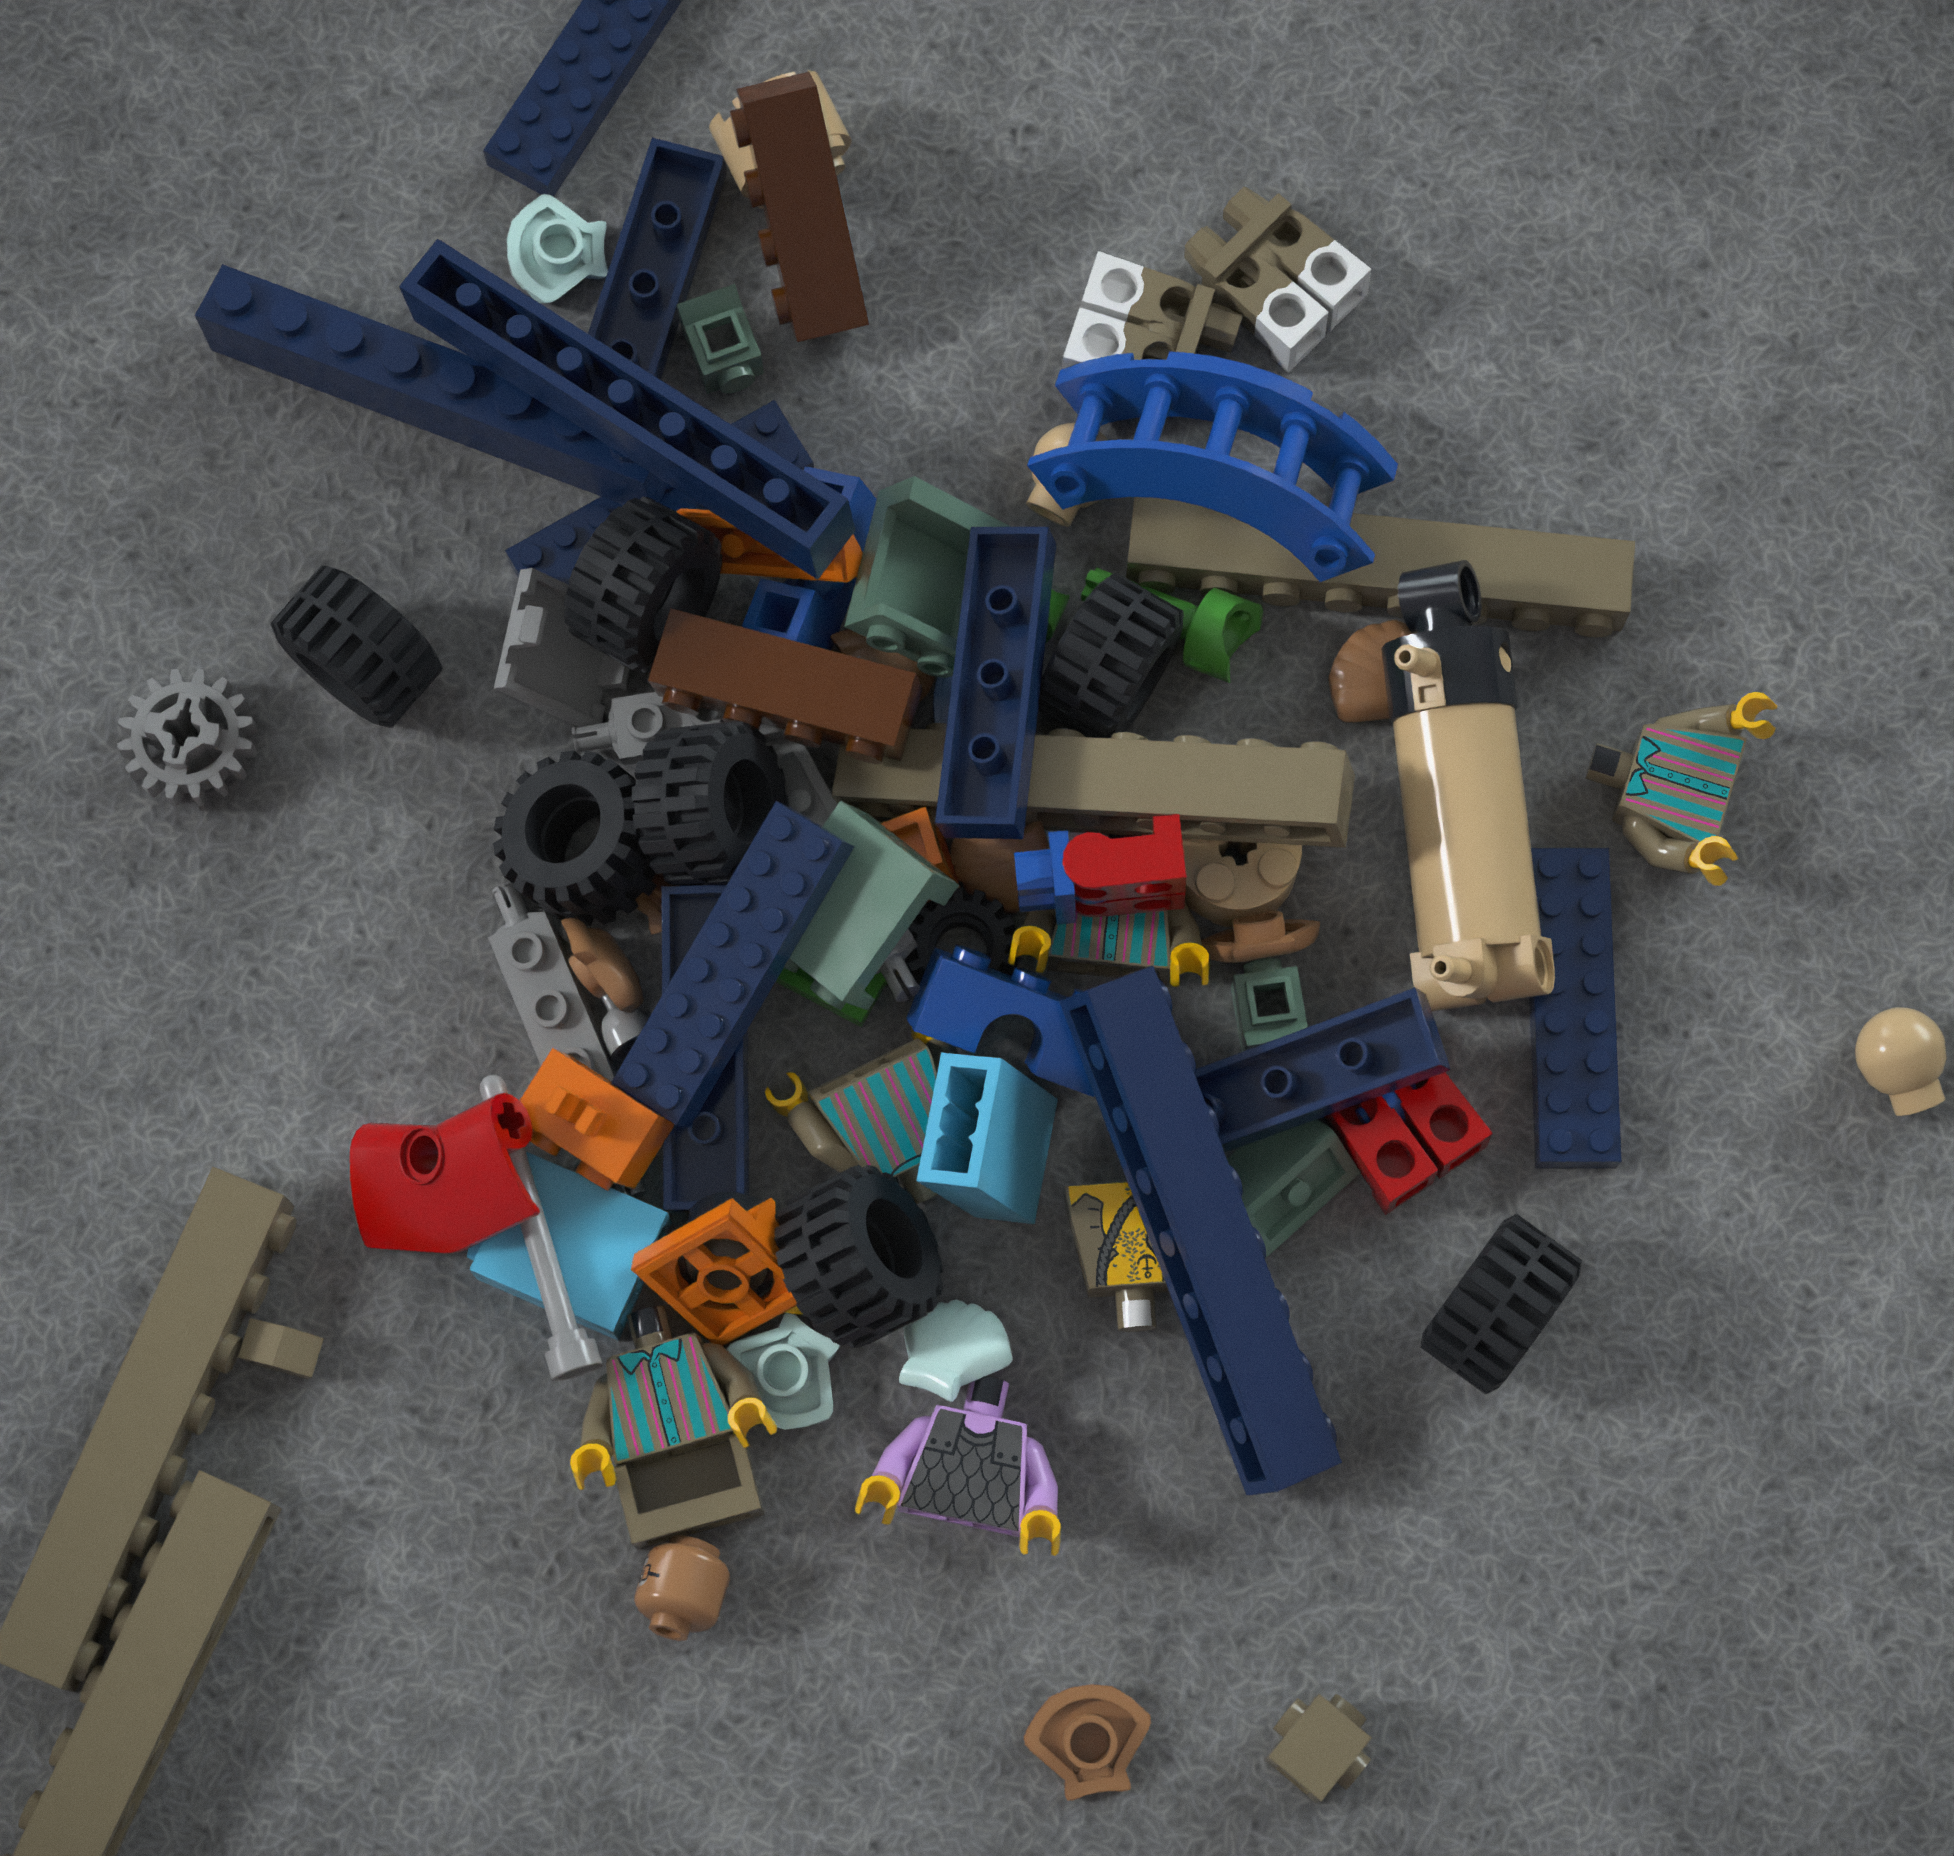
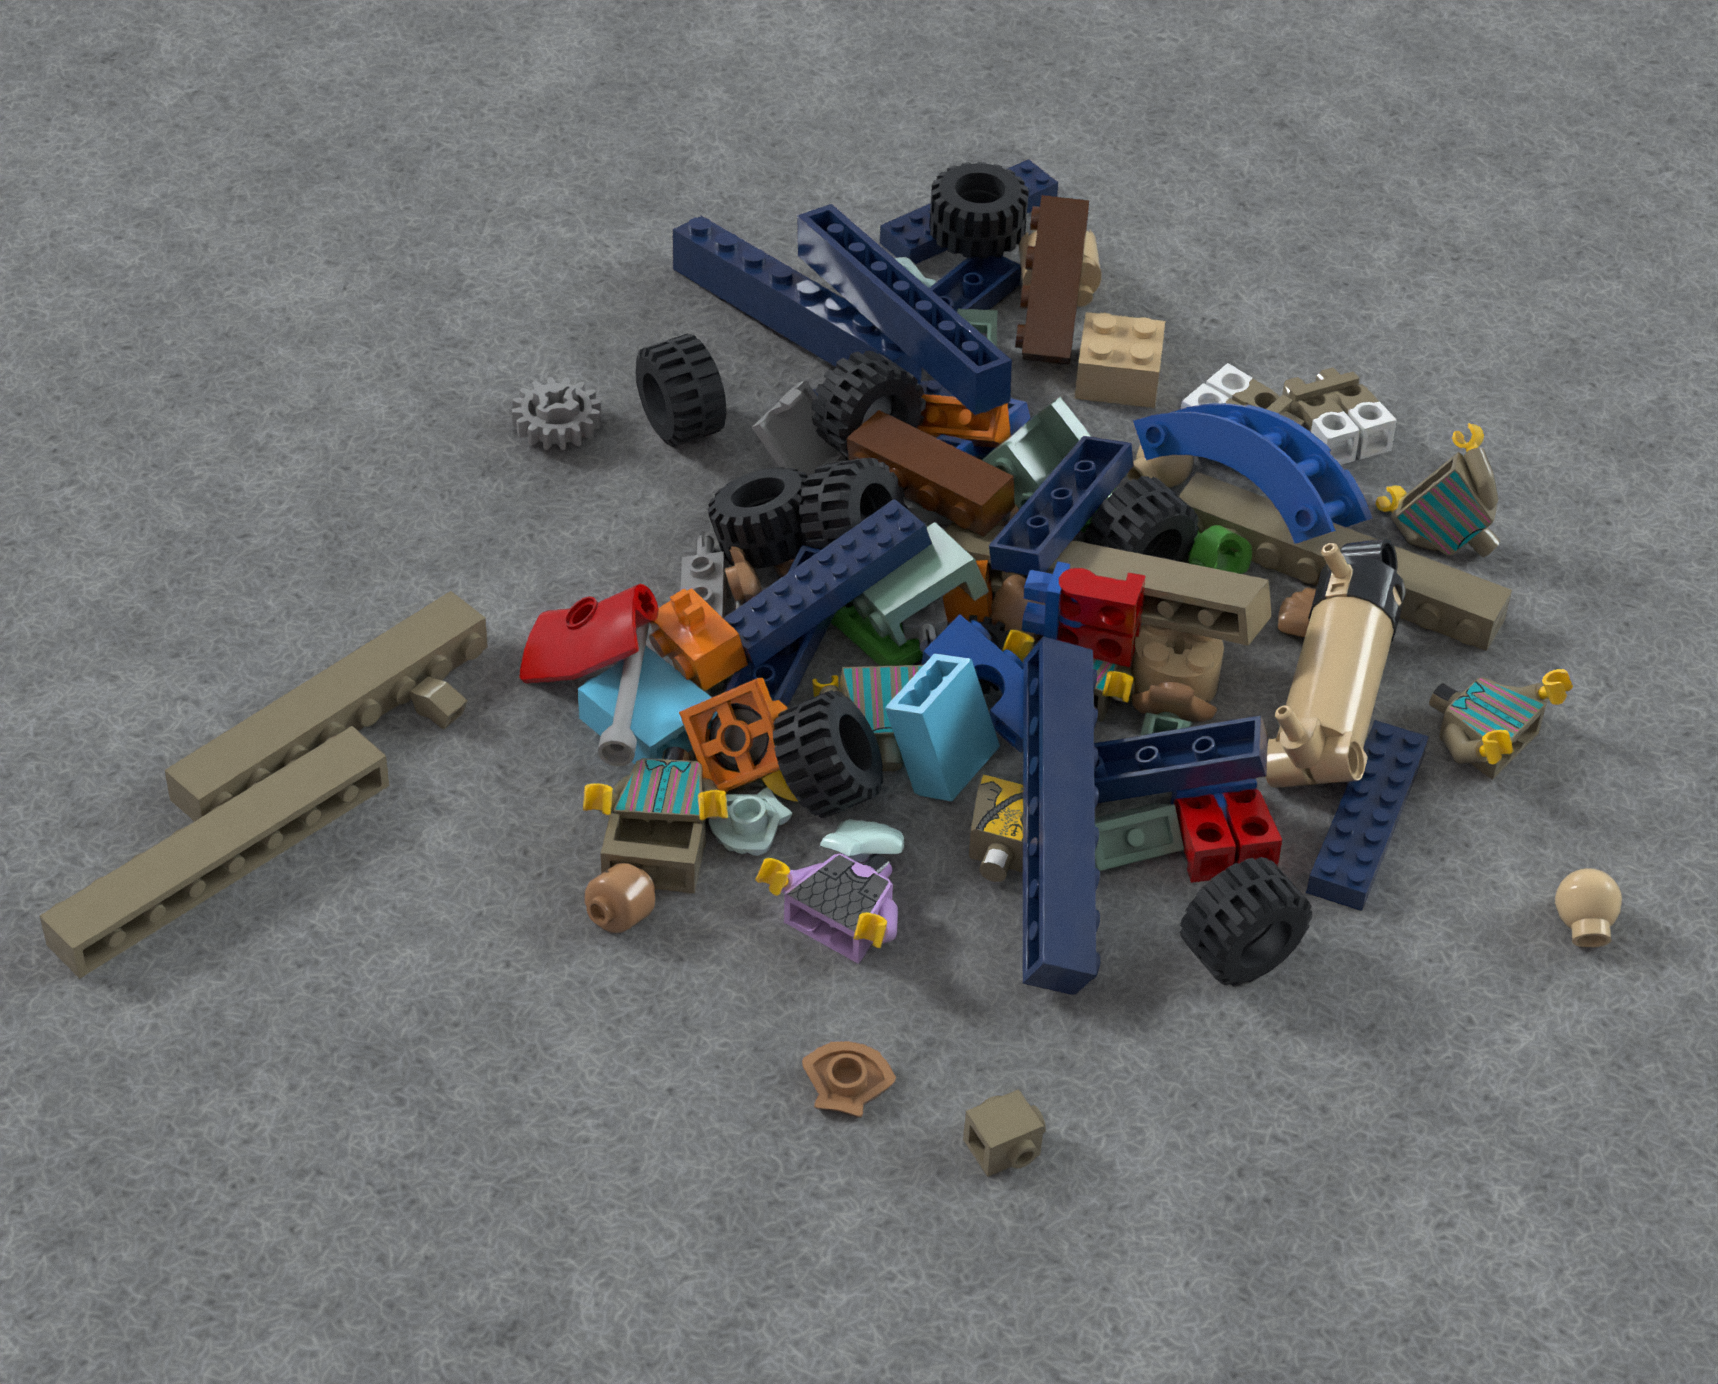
camera: 20 degrees right, 30 degrees down
(618, 47) = (978, 210): none -> black tyre
(938, 291) = (1119, 359): none -> tan brick
(1501, 414) = (1451, 503): none -> dark tan torso

